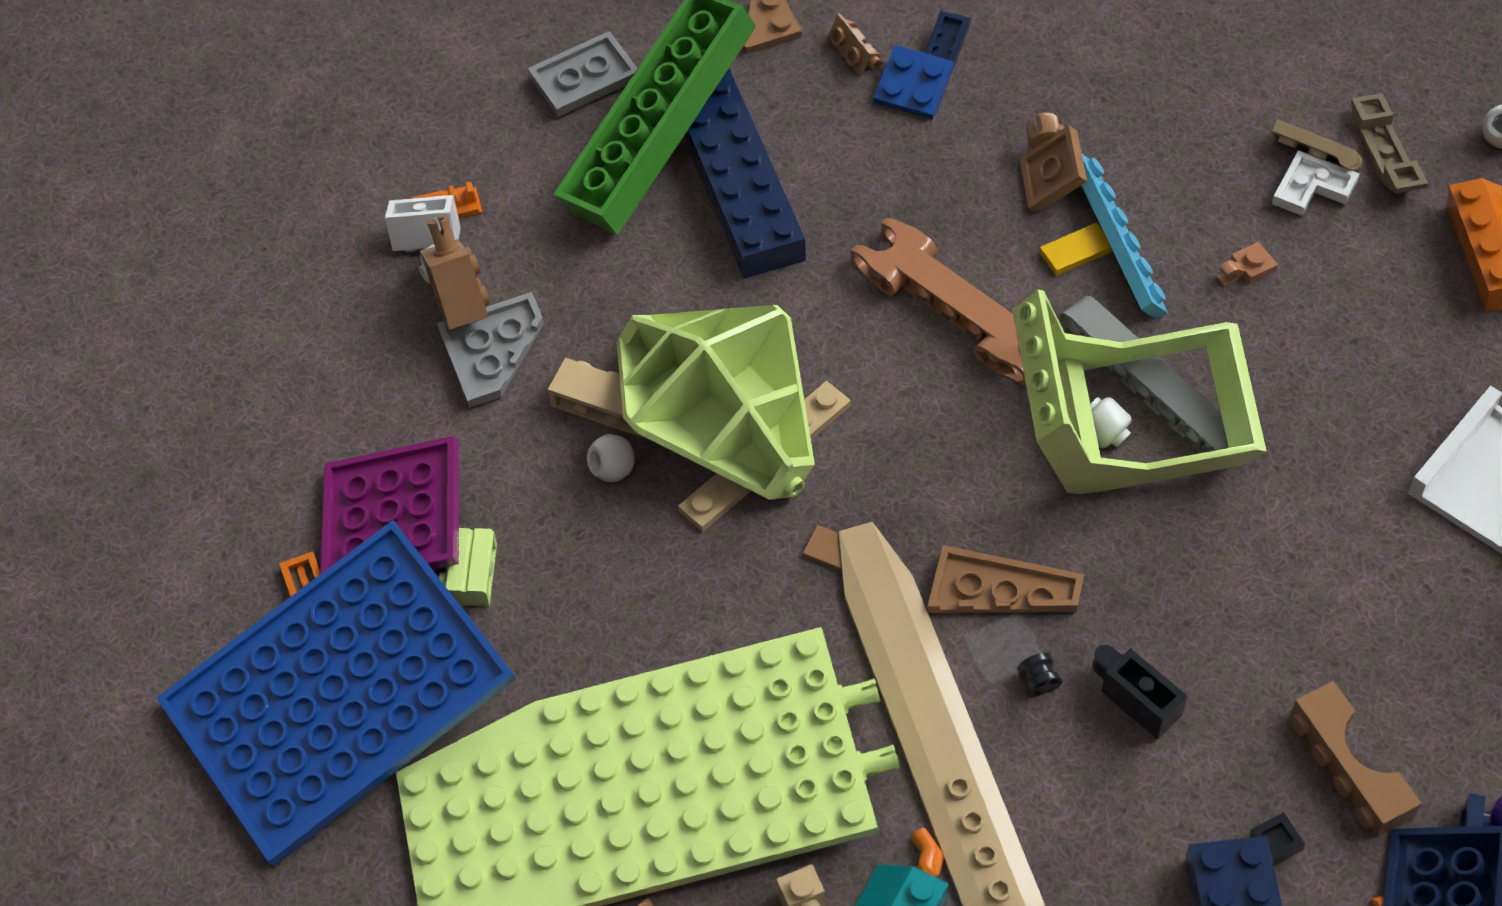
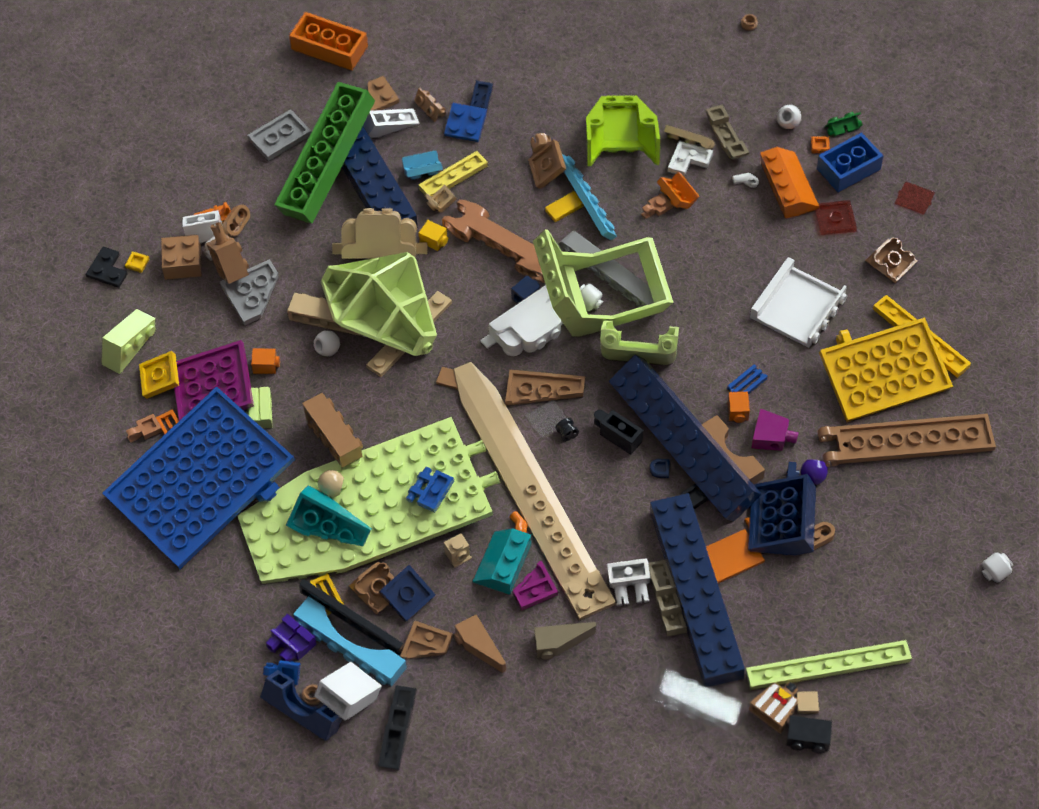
camera: 10 degrees left, 0 degrees up
(238, 280) = (103, 269): none -> black plate
(252, 412) = (126, 340): none -> yellowish green wedge
(260, 581) = (145, 427): none -> nougat plate
(299, 273) = (137, 262): none -> yellow tile
(299, 484) = (159, 374): none -> yellow plate
(376, 272) = (181, 257): none -> medium nougat brick
(458, 737) = (268, 493): none -> blue plate
(482, 218) = (235, 222): none -> medium nougat plate
(494, 479) = (264, 361): none -> orange brick
(551, 798) = (323, 517): none -> teal wedge
(575, 734) = (330, 483): none -> tan piece
(594, 629) = (332, 430): none -> medium nougat wedge
(732, 268) = (378, 235): none -> tan brick
(770, 775) = (435, 491): none -> blue plate
(773, 68) = (389, 121): none -> white slope
(826, 147) = (421, 164): none -> medium azure bracket
(831, 278) = (433, 235): none -> yellow brick
(853, 214) = (441, 199): none -> tan bracket
(880, 173) = (454, 174): none -> light yellow plate
(981, 464) = (525, 325): none -> white brick
(989, 400) = (524, 289): none -> dark blue brick
(1197, 114) = (622, 126): none -> lime windscreen
(1212, 773) = (660, 468): none -> dark blue tile
(1230, 545) = (615, 349): none -> yellowish green windscreen
(1270, 724) = (685, 438): none -> dark blue brick
(1290, 240) = (678, 190): none -> orange bracket
(1375, 667) = (738, 406): none -> orange brick
(1416, 603) = (753, 368): none -> blue tile
(1418, 231) = (747, 179): none -> white arm
(1439, 726) = (772, 432): none -> magenta torso

